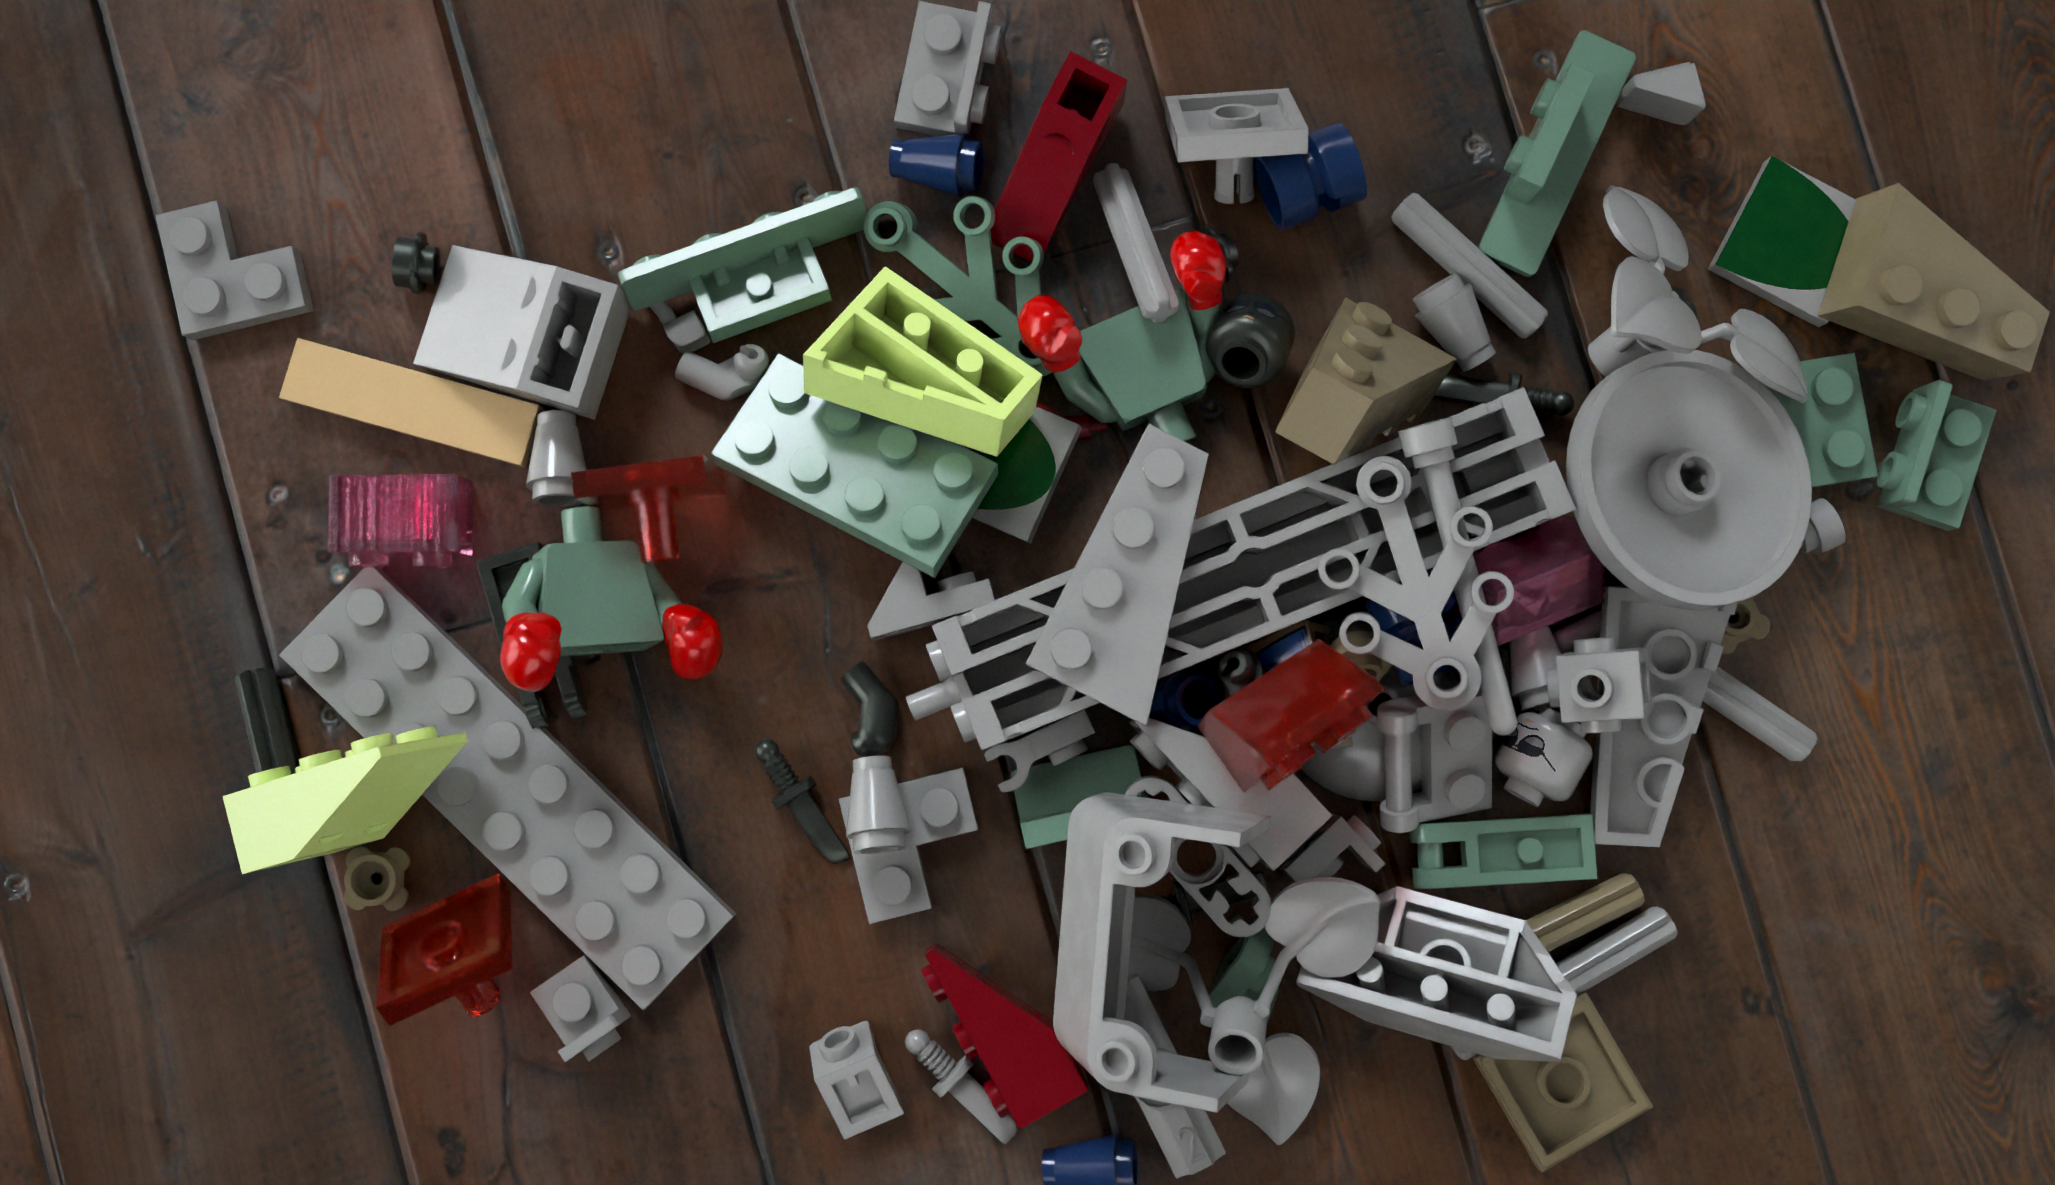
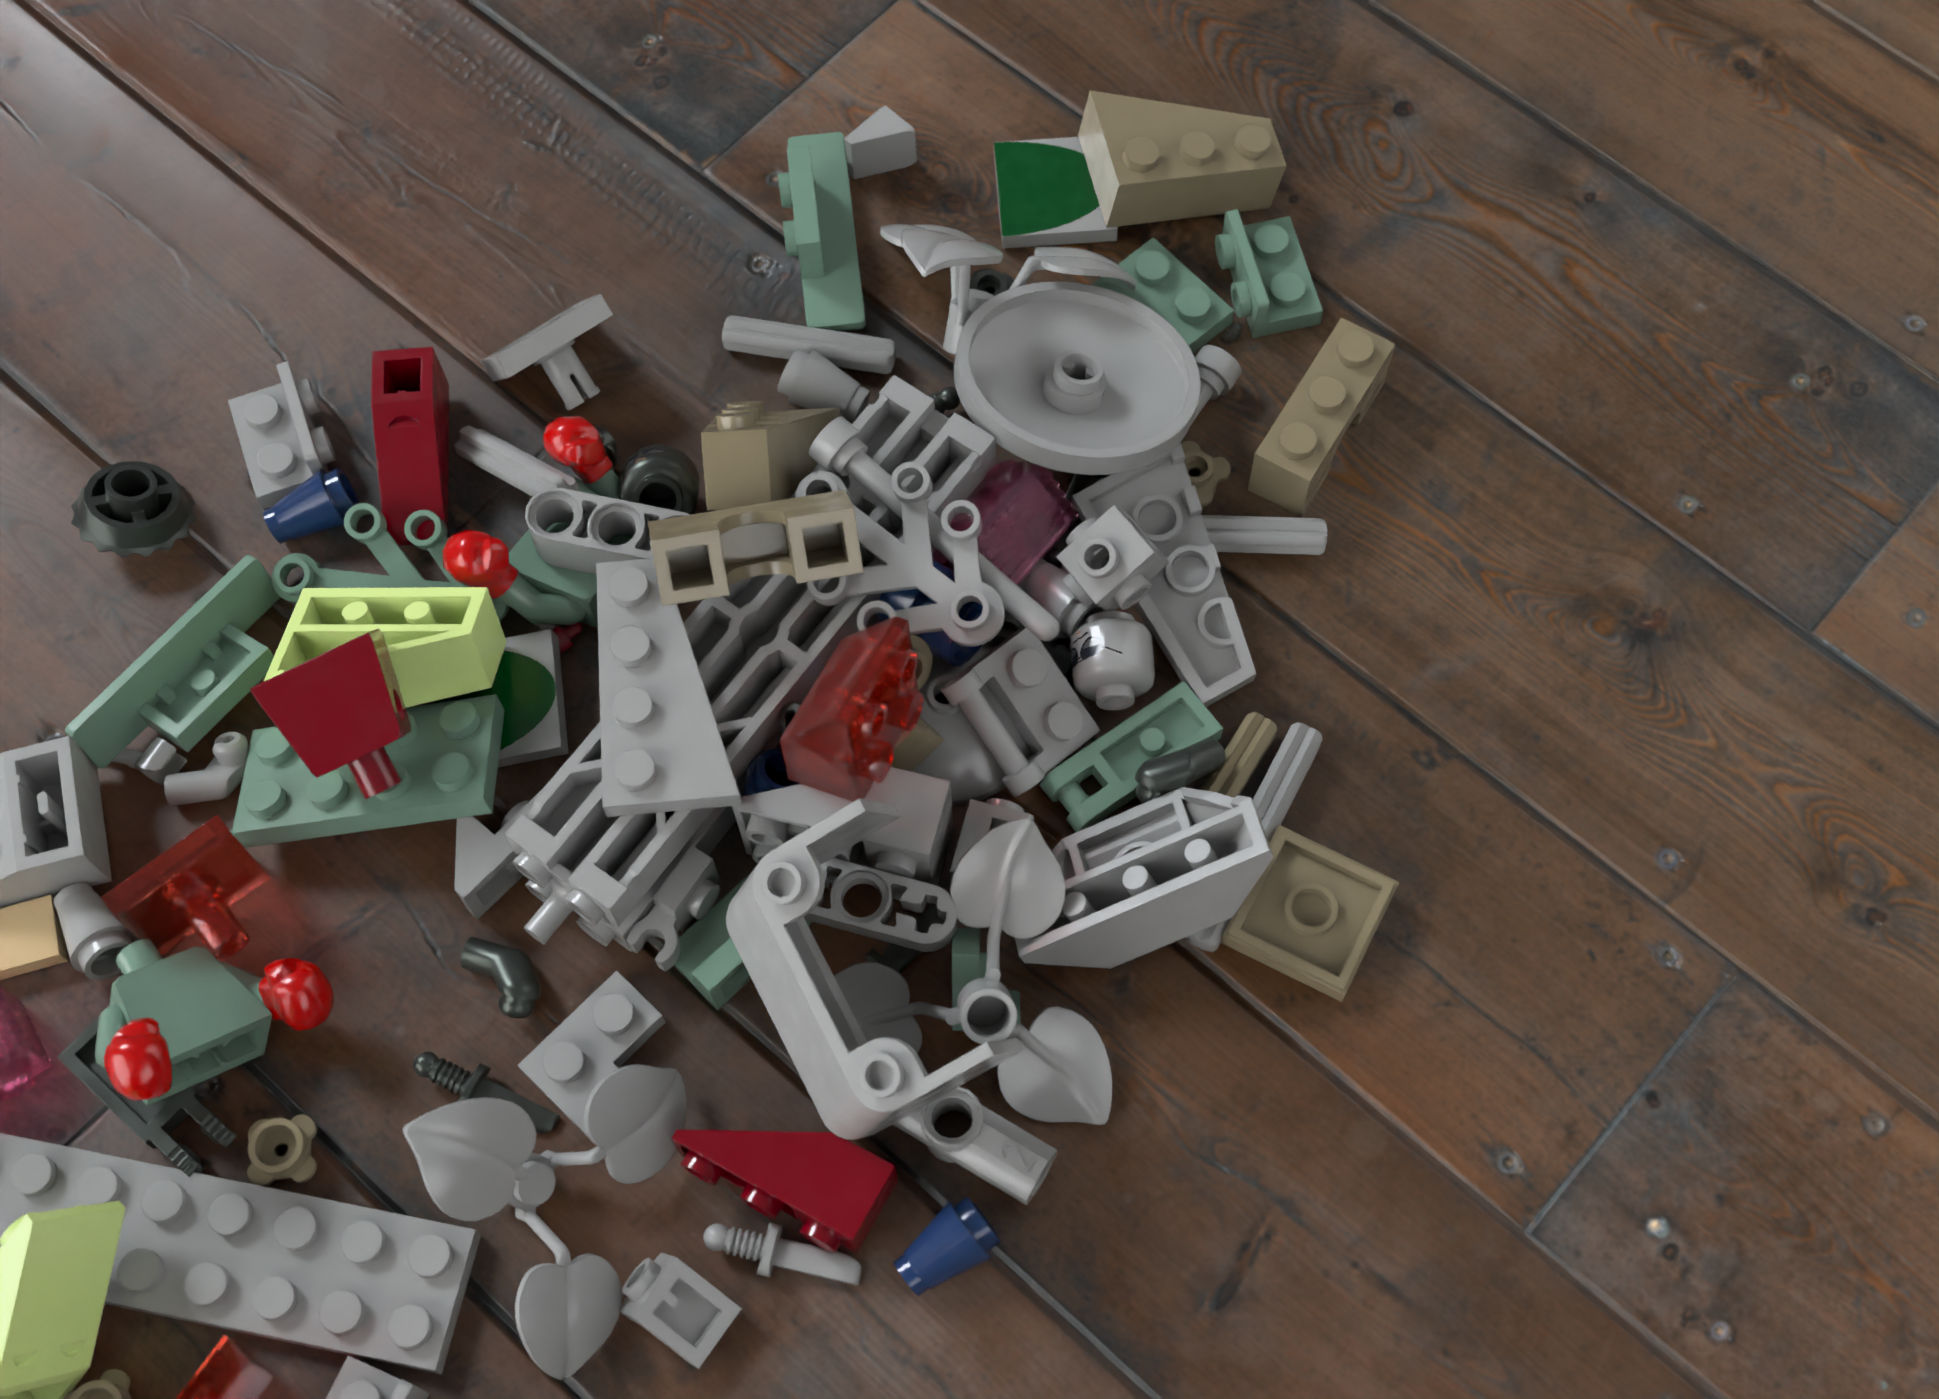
camera: 30 degrees left, 20 degrees down
(598, 753) = (264, 1140): none -> dark tan plate
(760, 916) = (482, 1158): none -> light grey plant
(780, 68) = (133, 509): none -> pearl dark grey piece
(853, 426) = (341, 711): none -> dark red torso
(876, 808) = (552, 1039): light grey cone -> none
(1174, 358) = (593, 523): none -> light grey beam
(1301, 183) = (641, 338): dark blue wheel -> none
(1343, 526) = (794, 536): none -> dark tan arch
(1532, 899) = (1178, 768): none -> pearl dark grey arm
(1886, 642) = (1313, 422): none -> dark tan arch

